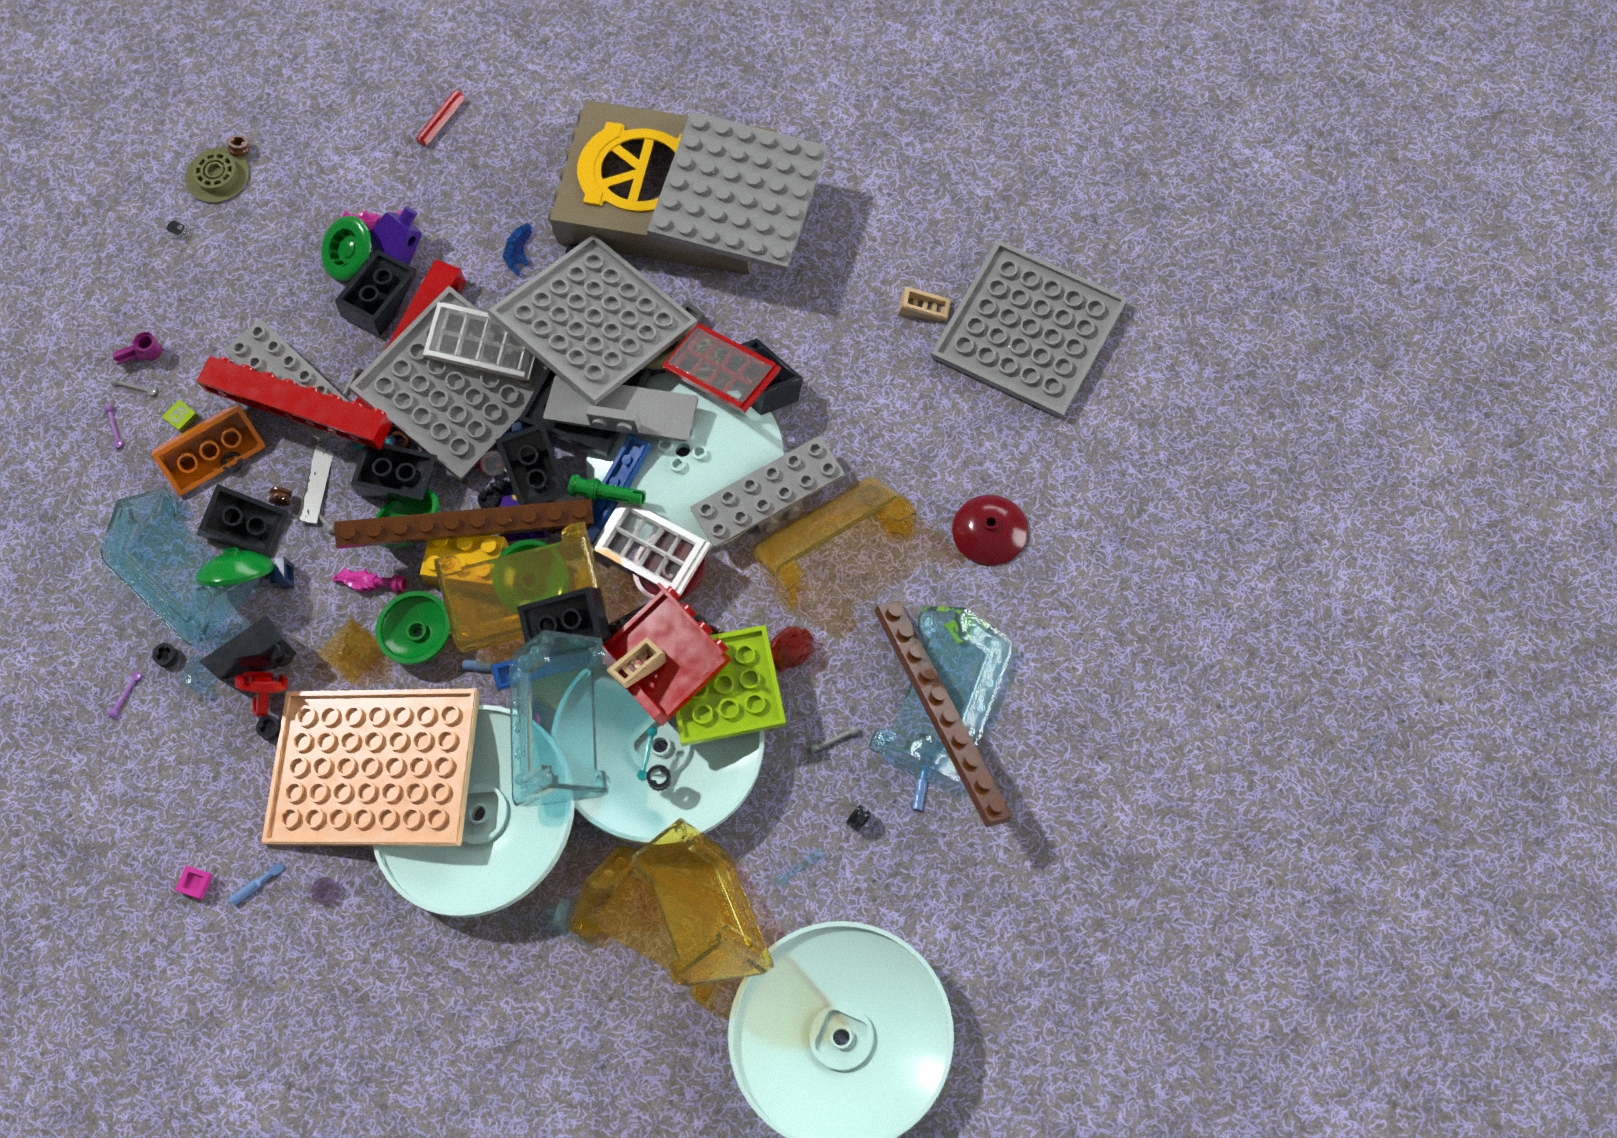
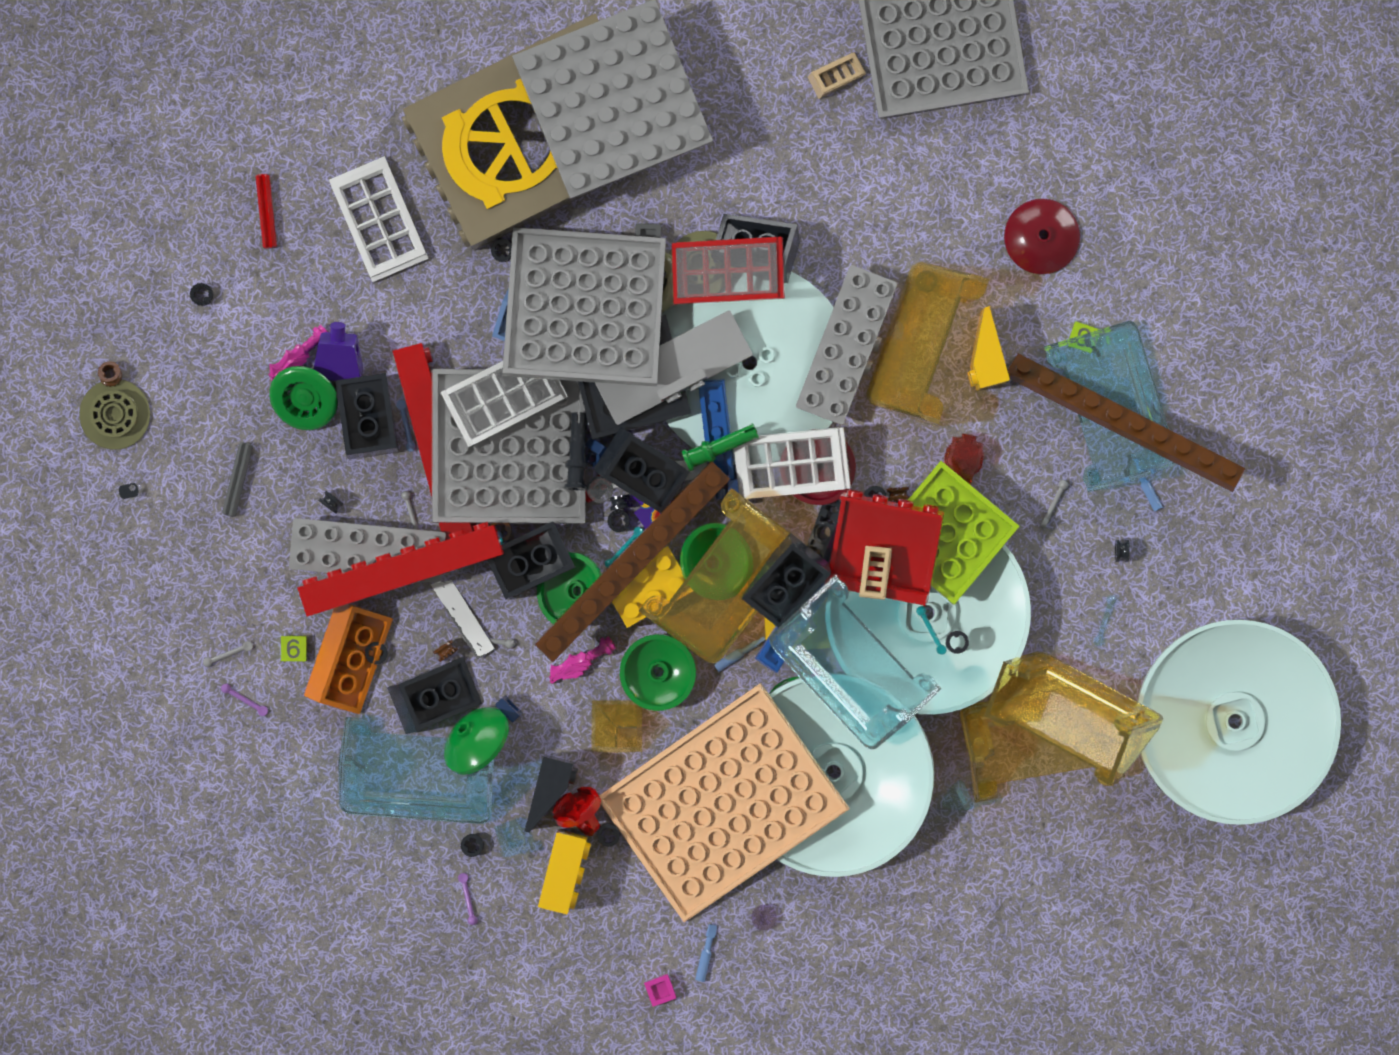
camera: 45 degrees left, 20 degrees up
(139, 349) = (203, 624): magenta axle -> none
(205, 723) = (564, 872): none -> yellow brick
(253, 274) = (237, 479): none -> dark grey axle
(300, 334) = (331, 502): none -> black bush
(347, 133) = (196, 288): none -> black bush
(491, 428) = (576, 464): none -> black pin
(498, 213) = (399, 262): none -> white piece
(514, 248) = (441, 284): clear blue piece -> none
(869, 578) = (987, 360): none -> yellow slope

